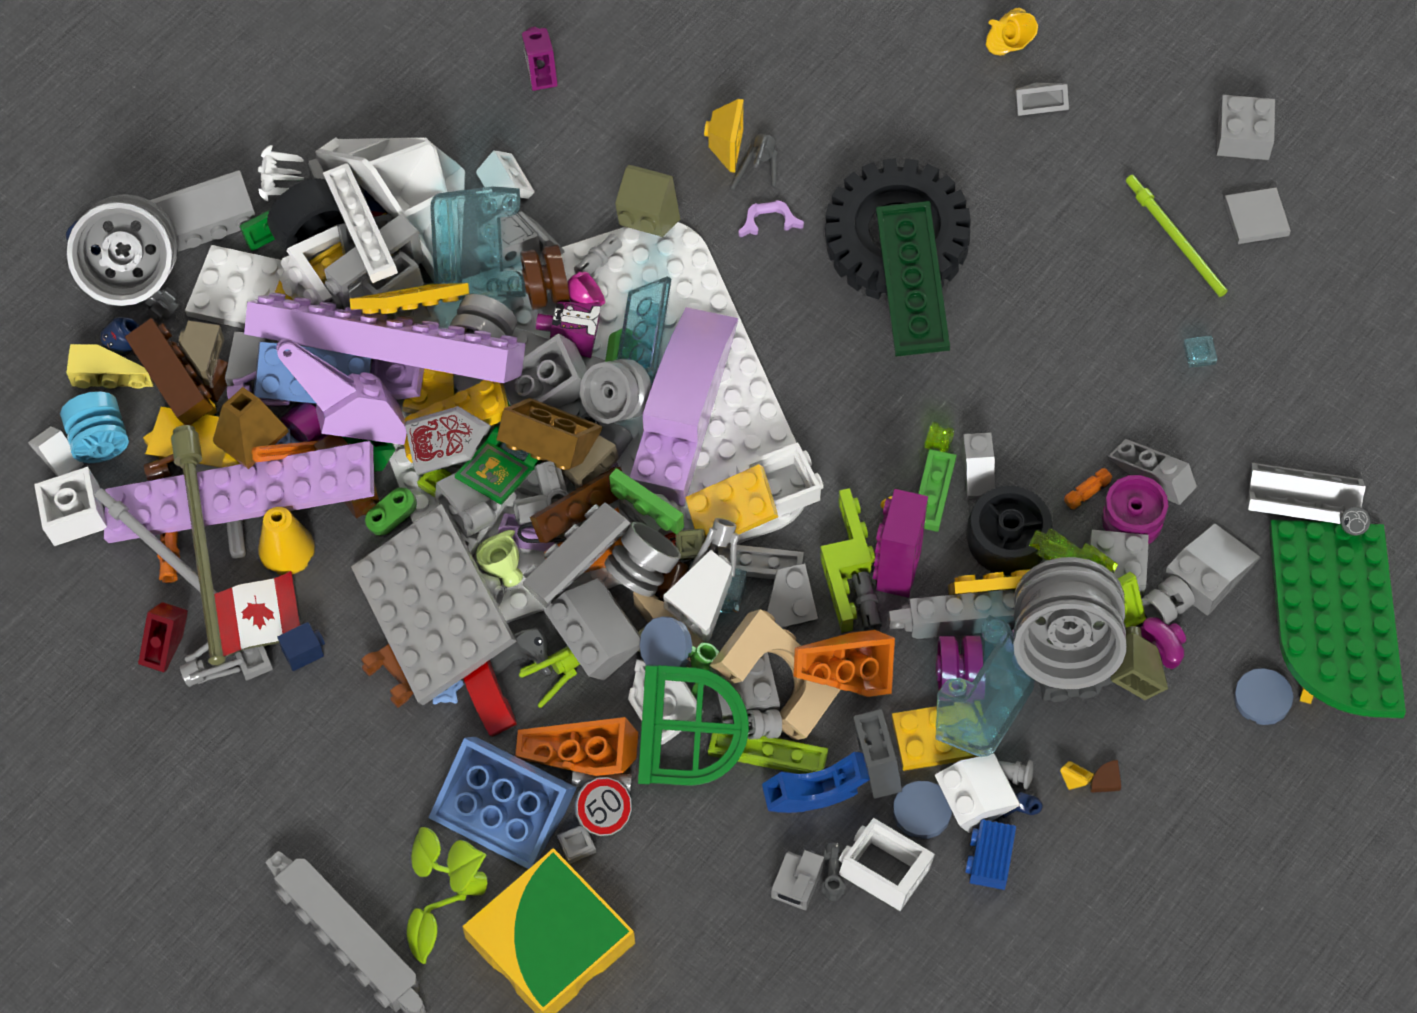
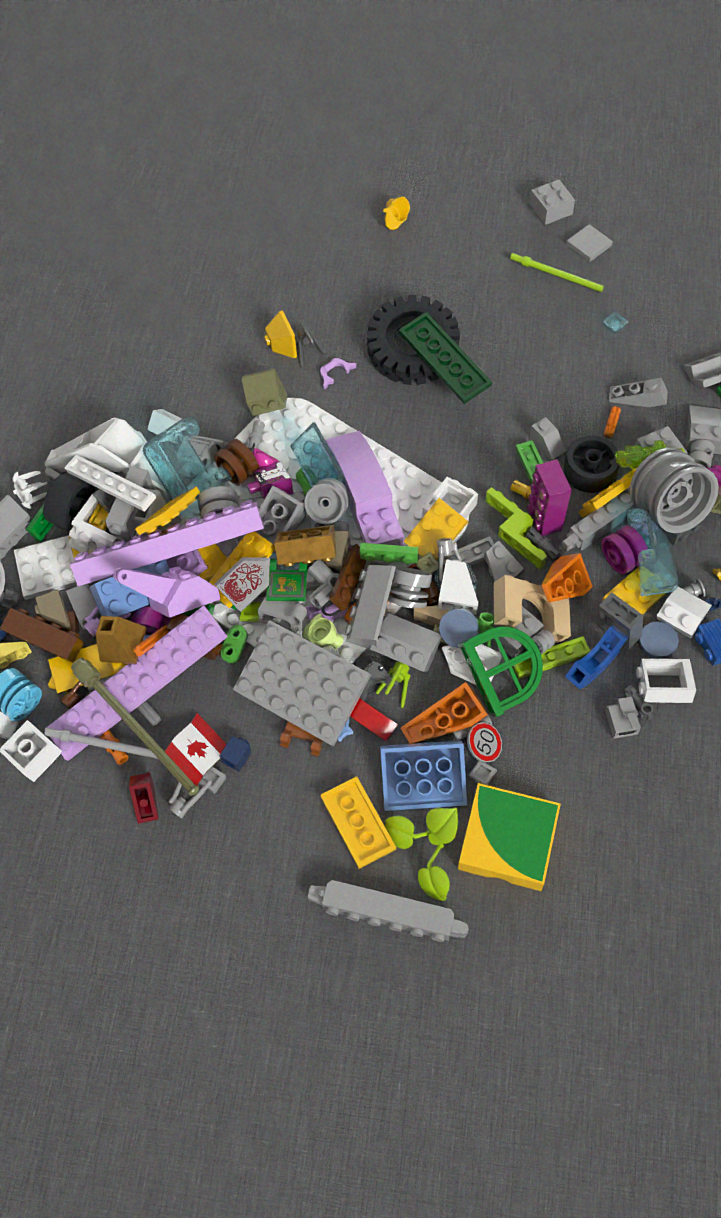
camera: 30 degrees left, 0 degrees up
(284, 542) = (182, 698): yellow cone -> none
(385, 812) = (358, 822): none -> yellow plate
(539, 47) = (142, 344): magenta torso -> none
(939, 437) = (516, 436): clear neon green wheel -> none
(1042, 98) = (436, 238): light grey slope -> none
(1135, 506) = (648, 416): magenta wheel -> none

